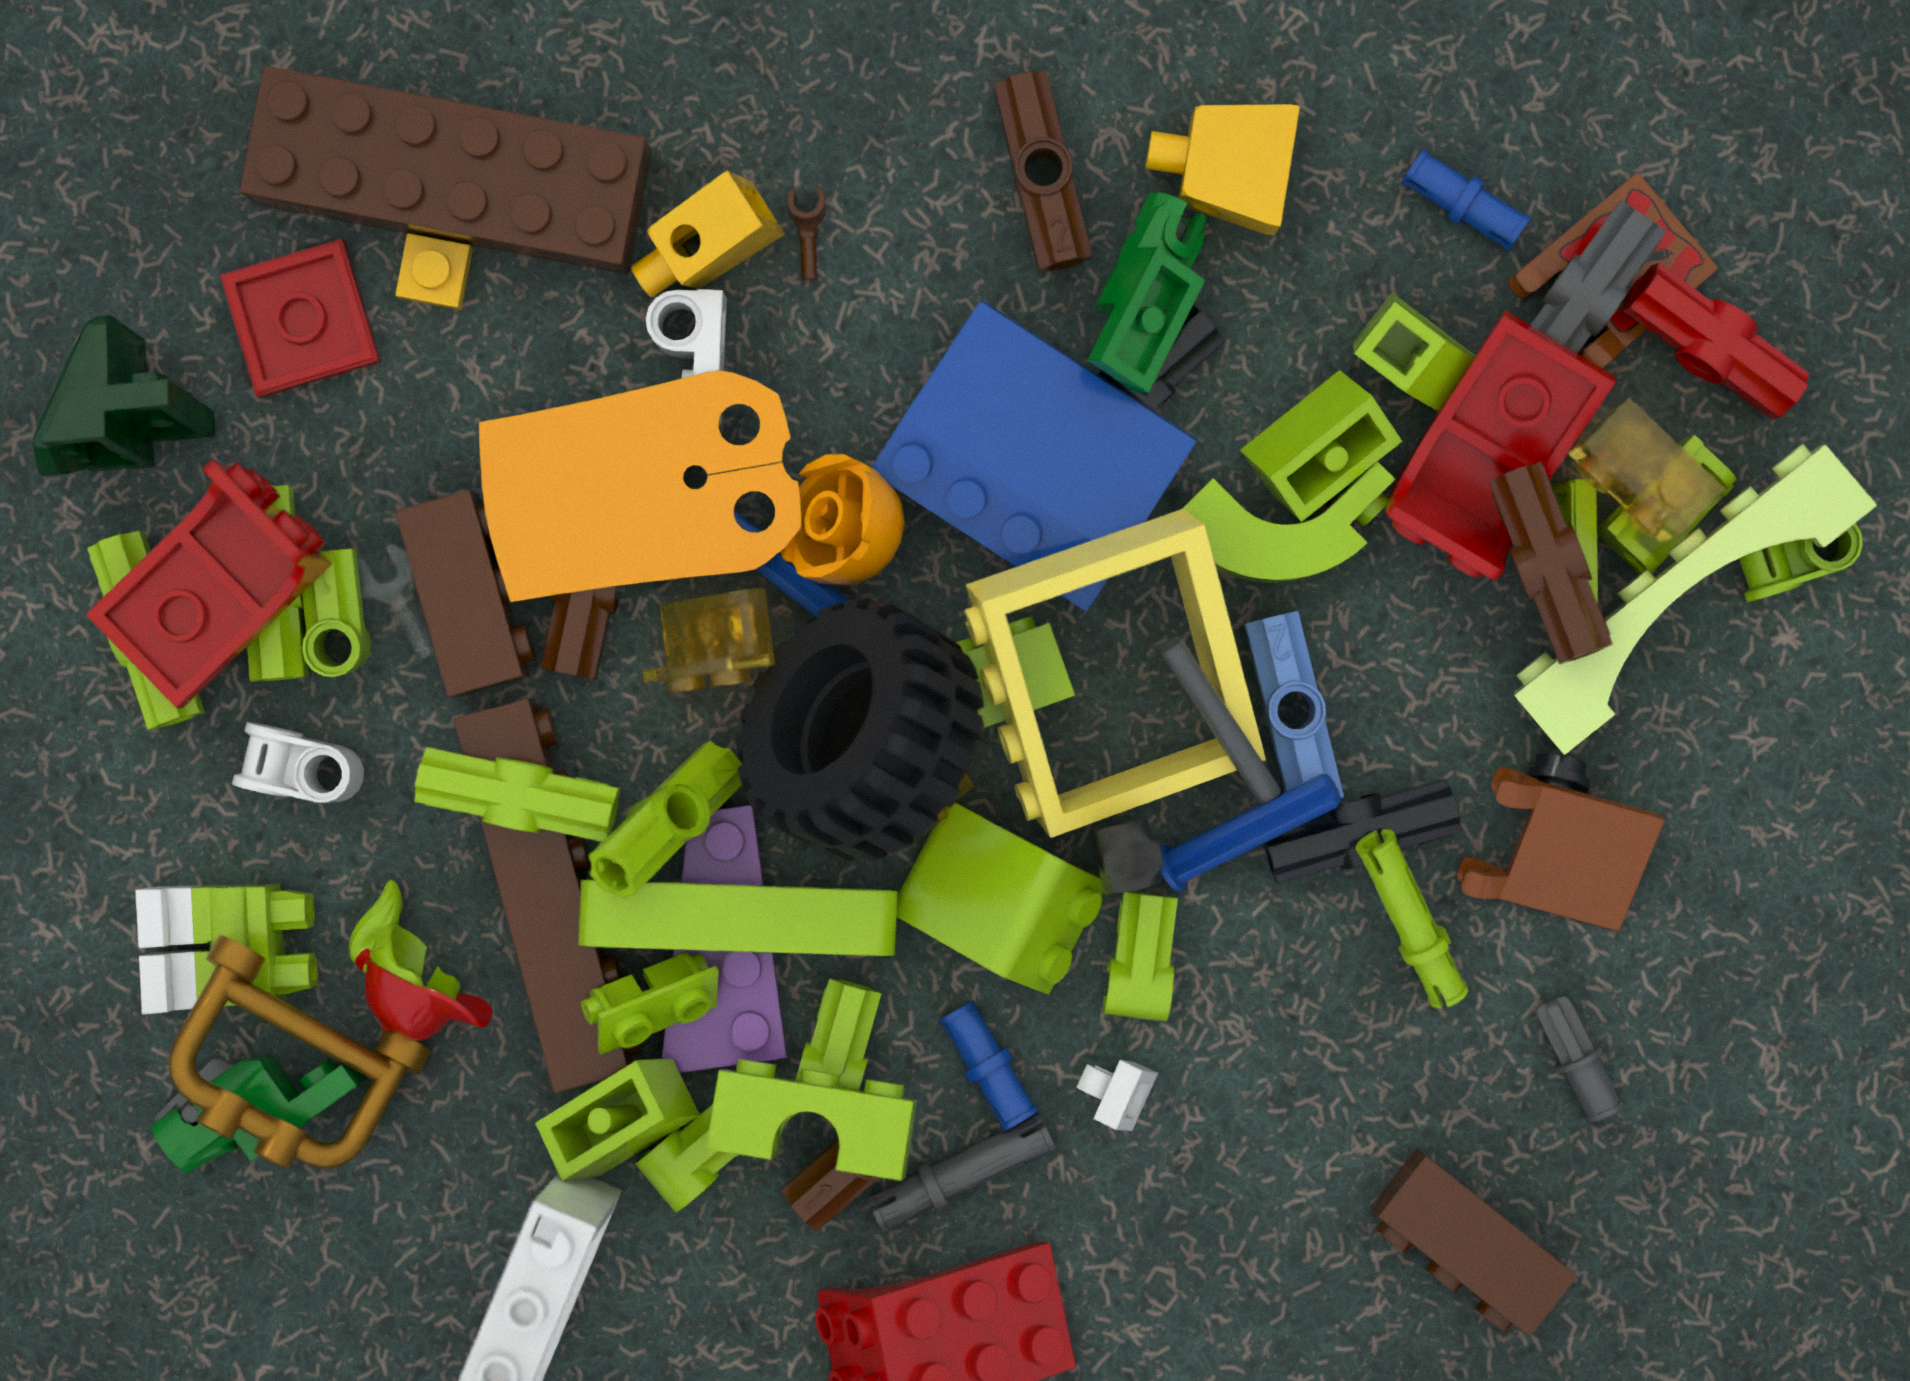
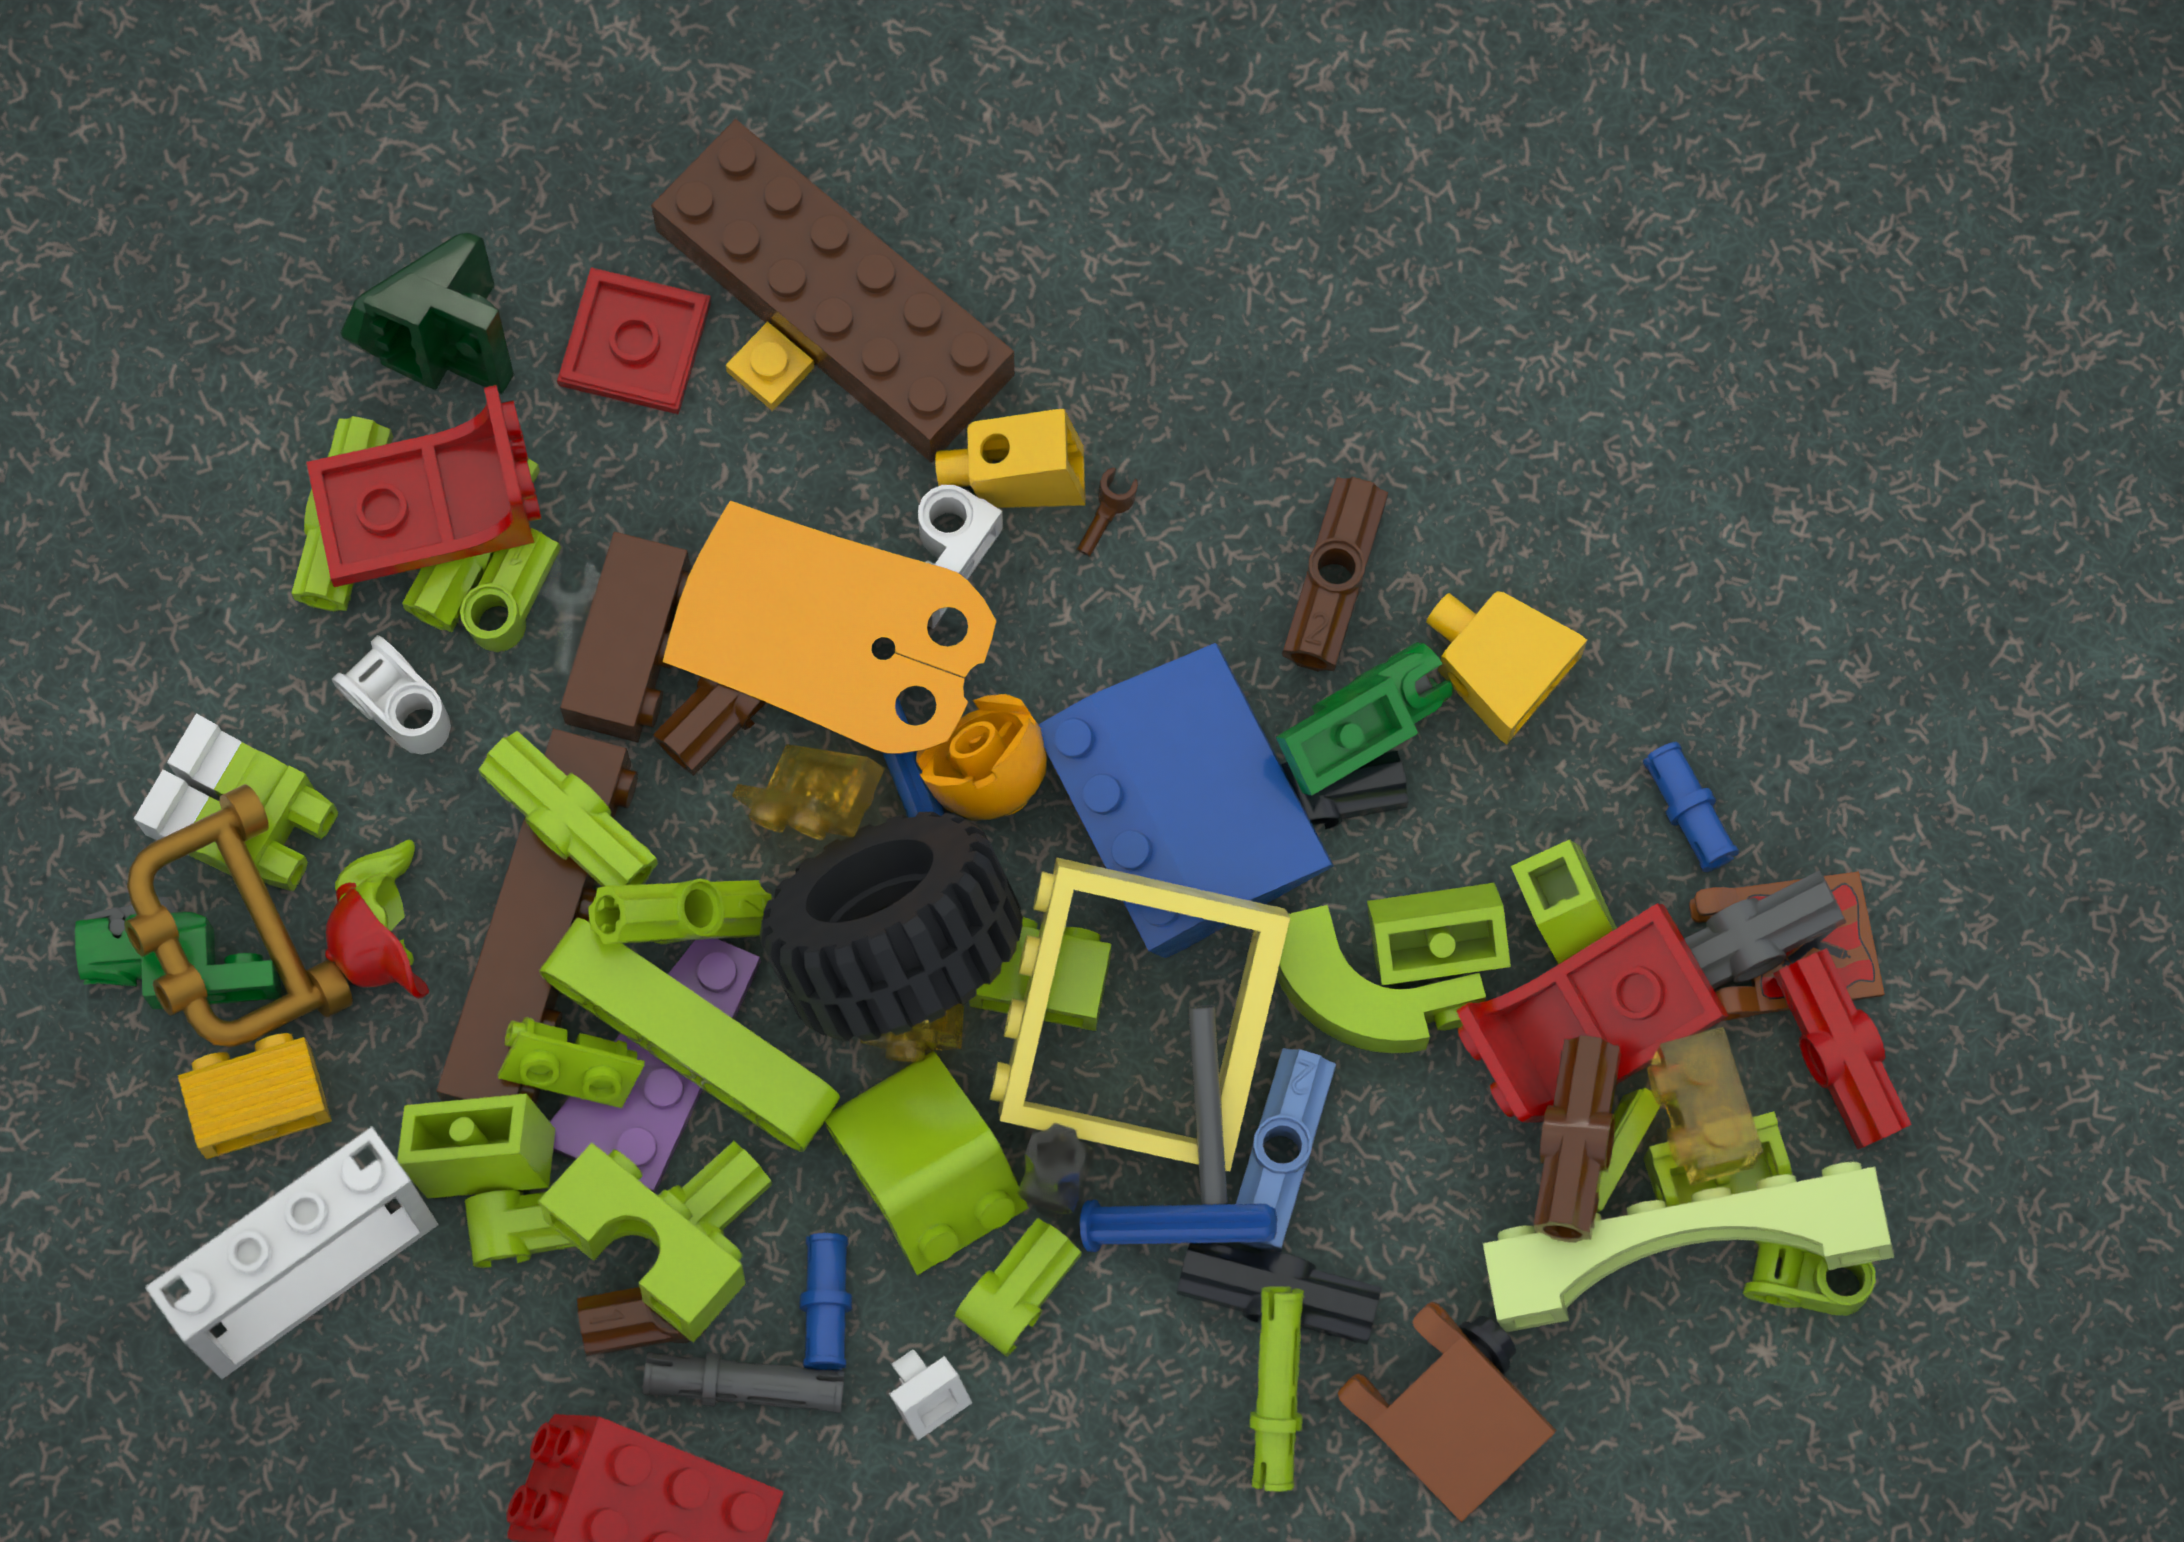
camera: 30 degrees right, 15 degrees down
(399, 1182) = (253, 1095): none -> yellow brick

